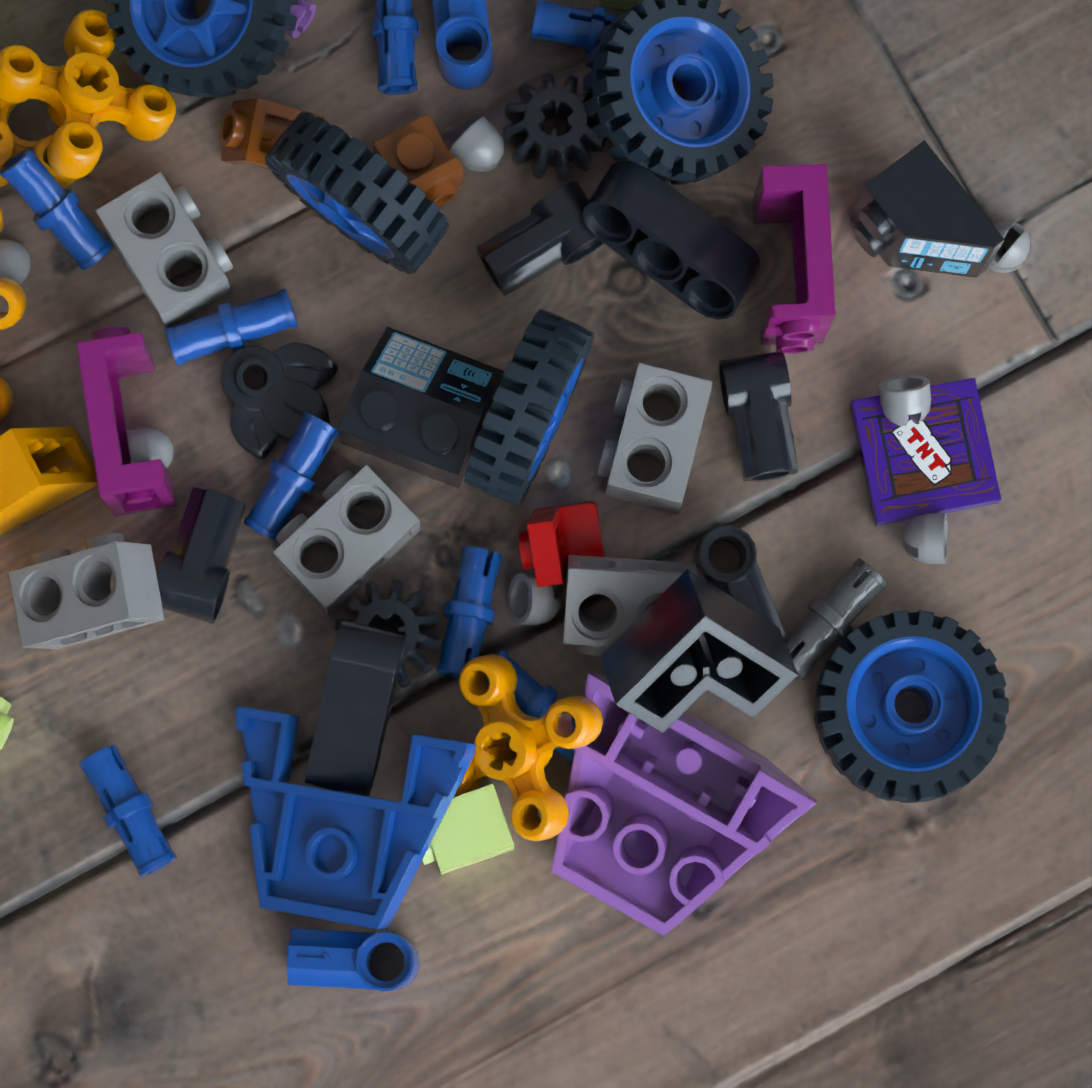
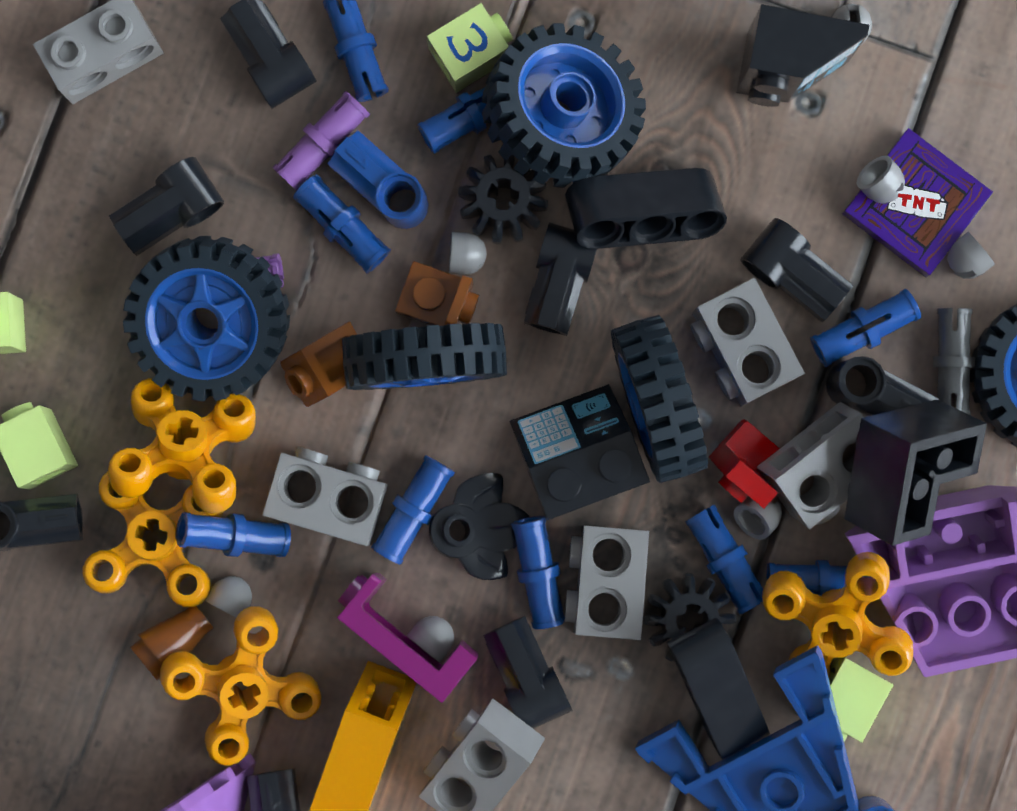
camera: 40 degrees left, 5 degrees up
(778, 519) = (897, 313): none -> blue pin
(801, 198) = (743, 140): magenta panel -> none

